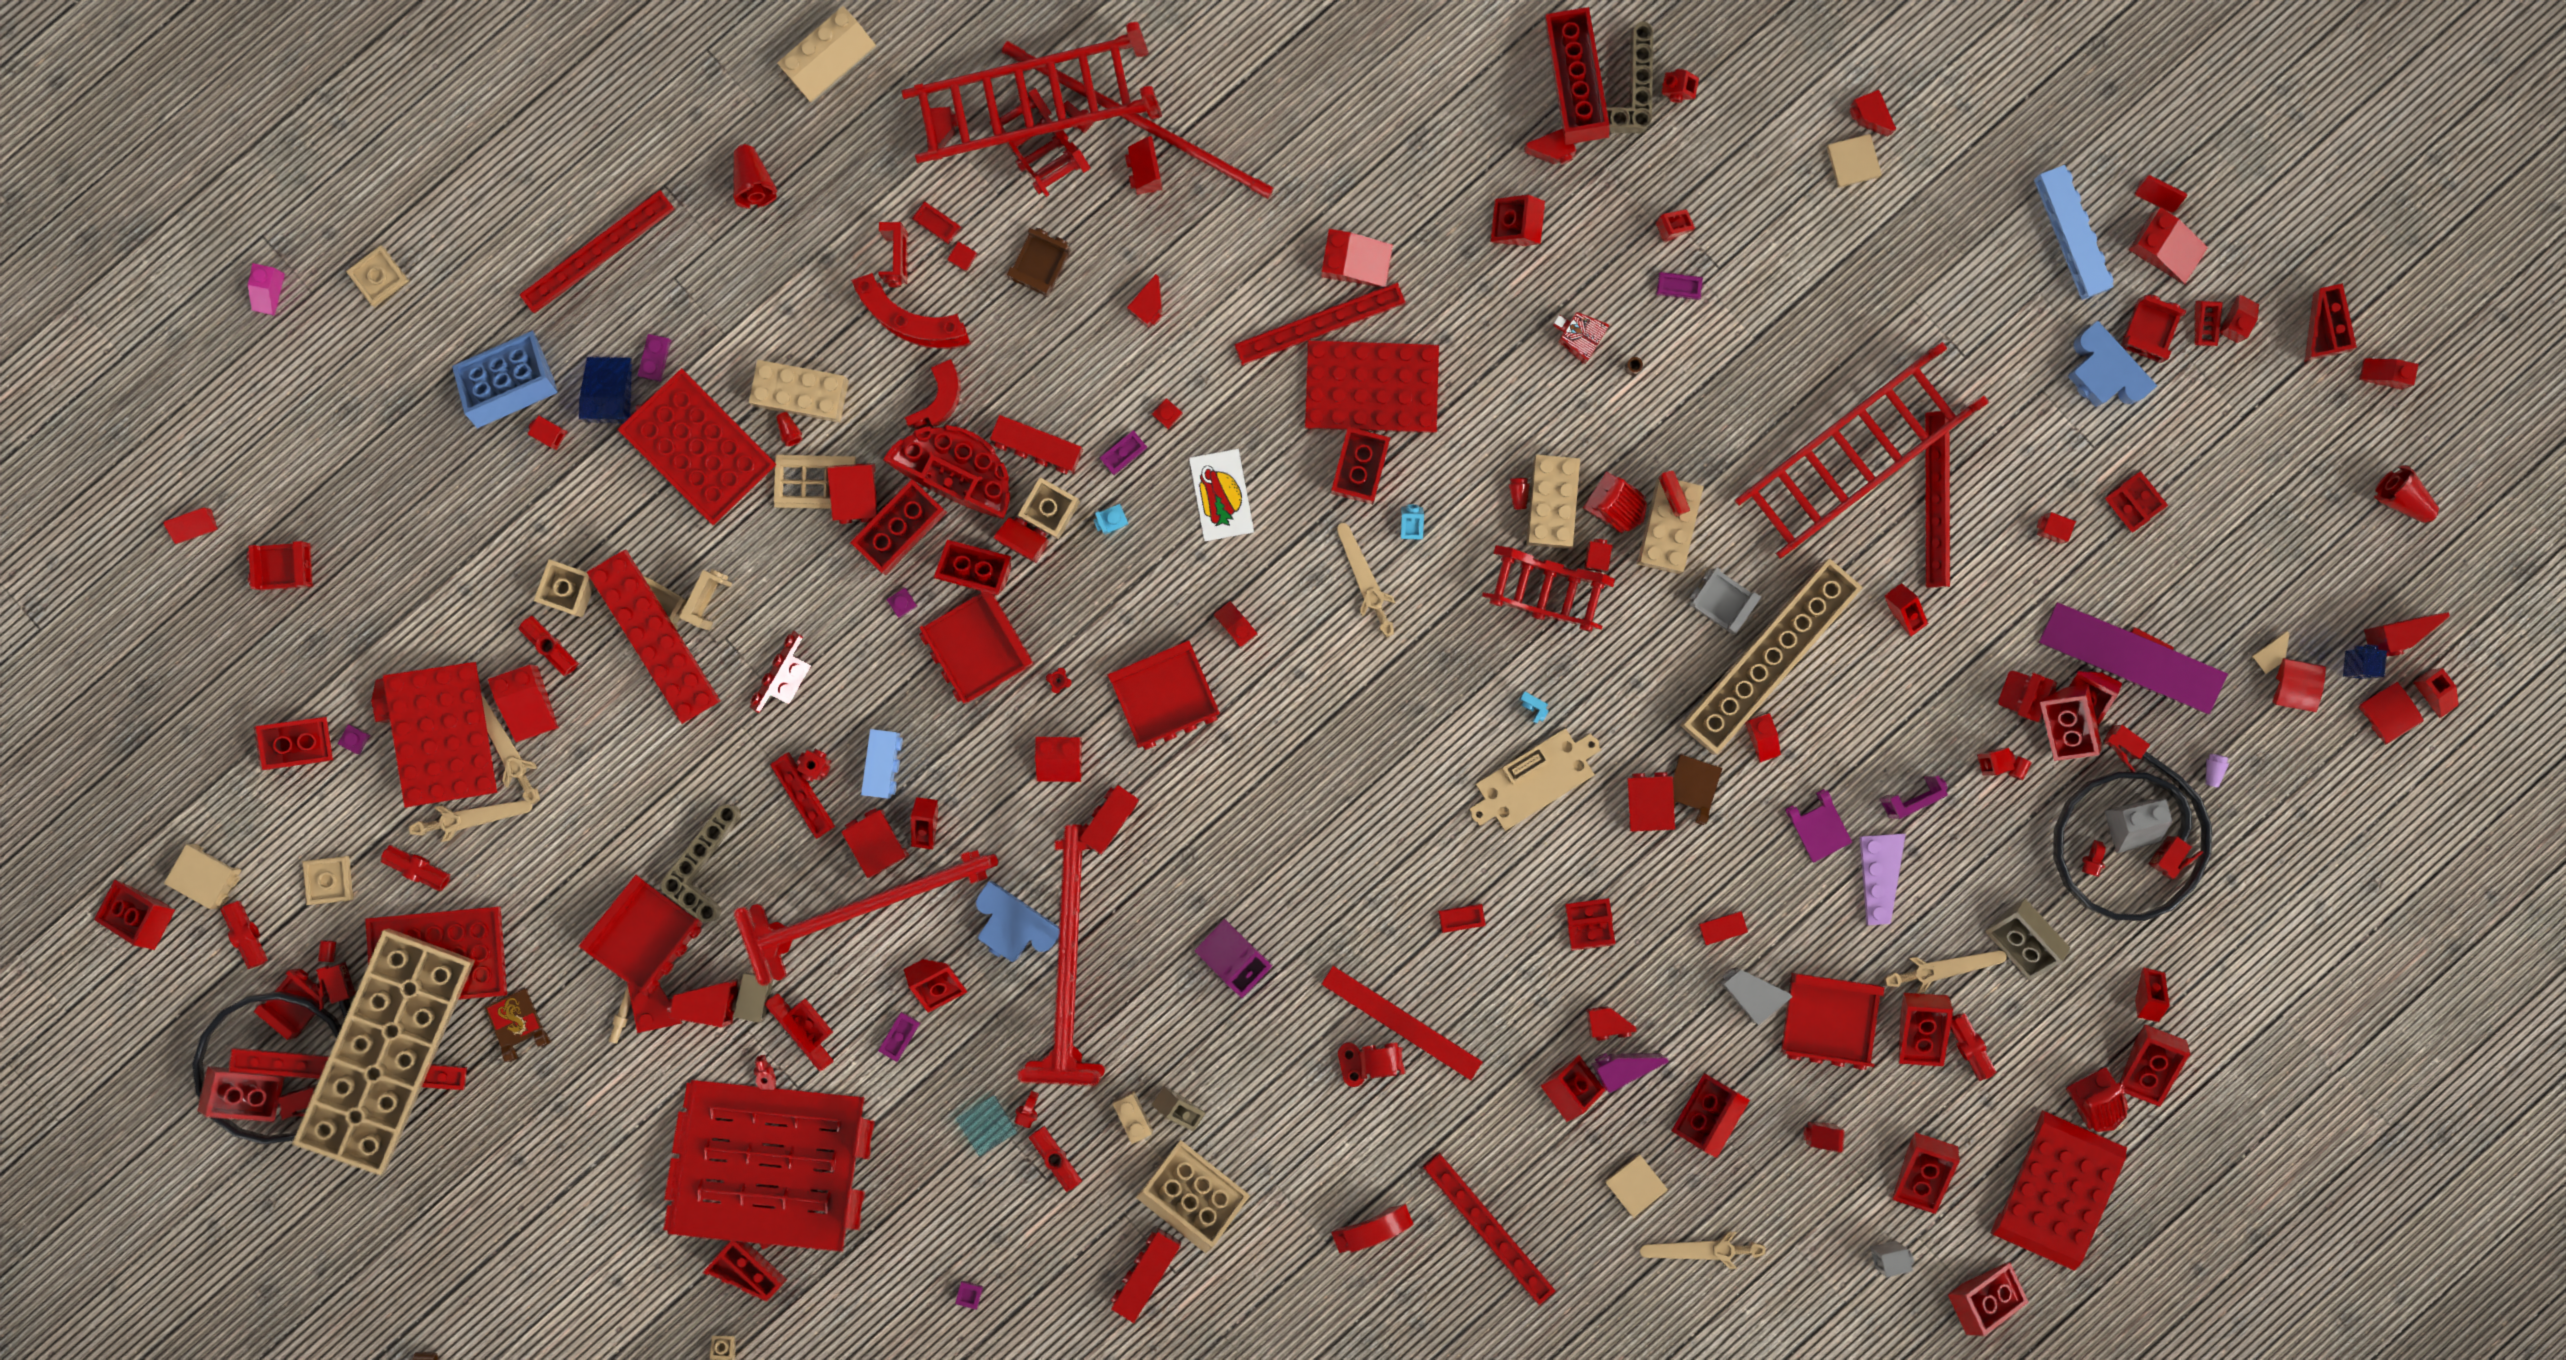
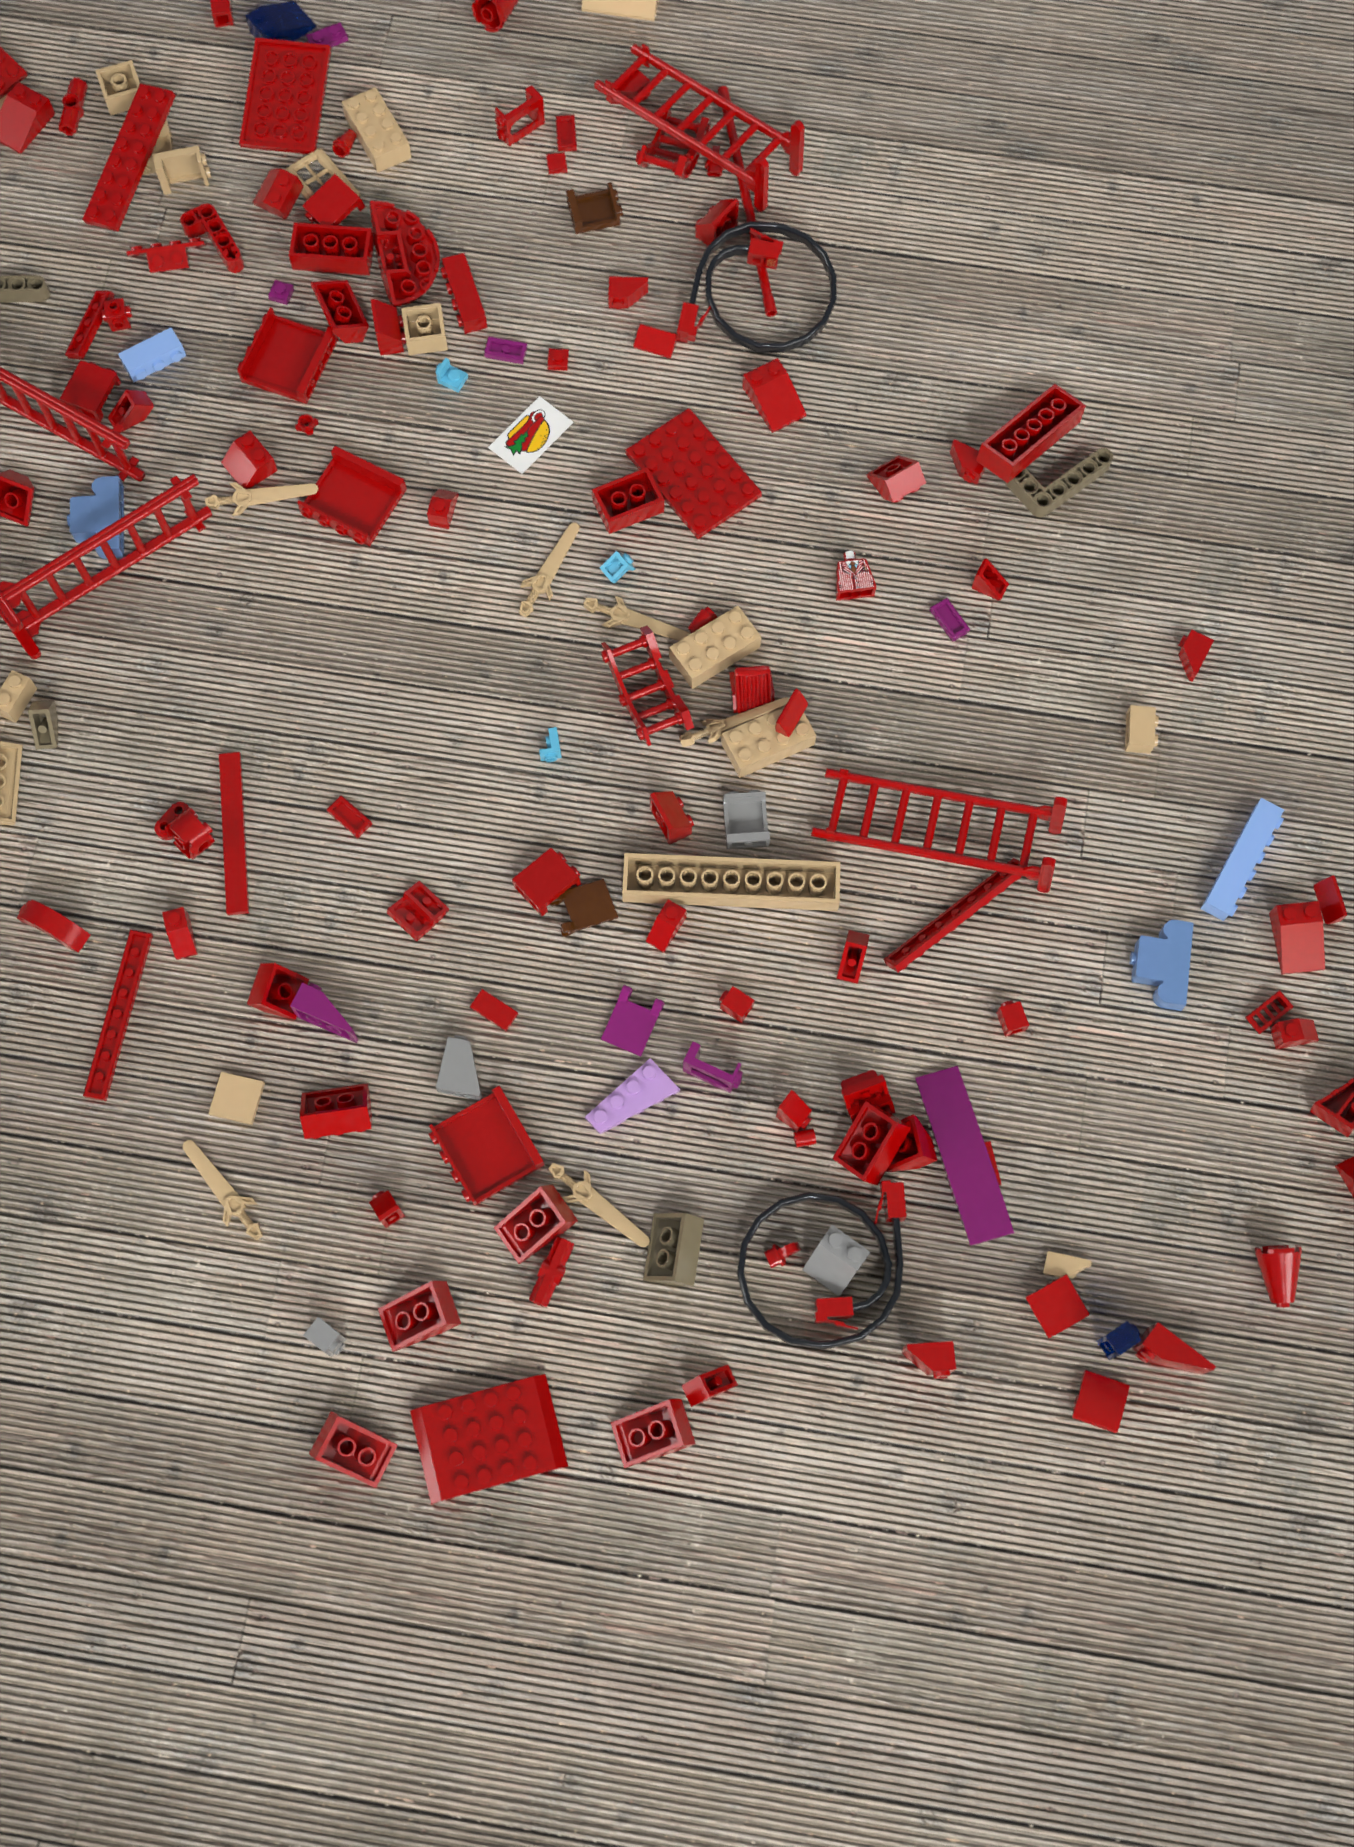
camera: 50 degrees right, 15 degrees down
(796, 530) = (279, 192): none -> red slope
(803, 618) = (207, 220): none -> red beam
(919, 330) = (482, 166): red fence -> none
(946, 400) = (447, 218): red arch -> none
(1096, 777) = (249, 497): none -> tan sword
(1108, 819) = (228, 523): red brick -> none
(1218, 316) = (655, 341): none -> red slope
(1222, 269) = (760, 253): none -> black piece
(1233, 958) = (190, 681): magenta slope -> none
(1319, 324) = (708, 408): red tile -> none
(1459, 1130) = (180, 932): none -> red slope
(1466, 548) = (622, 615): none -> tan sword
(1535, 779) = (498, 790): tan piece -> none
(1598, 556) = (702, 705): red brick -> none
(1607, 1022) = (350, 977): red slope -> none
(1627, 557) = (716, 727): none -> tan sword
(1638, 362) = (863, 634): reddish brown hinge -> none
(1675, 659) = (670, 816): none -> red slope
(1680, 85) = (1089, 509): red brick -> none
(1854, 161) = (1149, 669): tan tile -> none
(1872, 734) = (736, 1003): none -> red brick
(1902, 215) = (1140, 729): none -> tan brick
(2099, 1101) = (588, 1412): red piece -> none
(2136, 501) = (1086, 1066): red slope -> none
(2152, 328) = (1227, 973): red panel -> none
(2215, 769) = (933, 1293): lavender cone -> none
(2267, 811) = (932, 1358): none -> red slope
(2438, 691) = (1150, 1424): red slope -> none

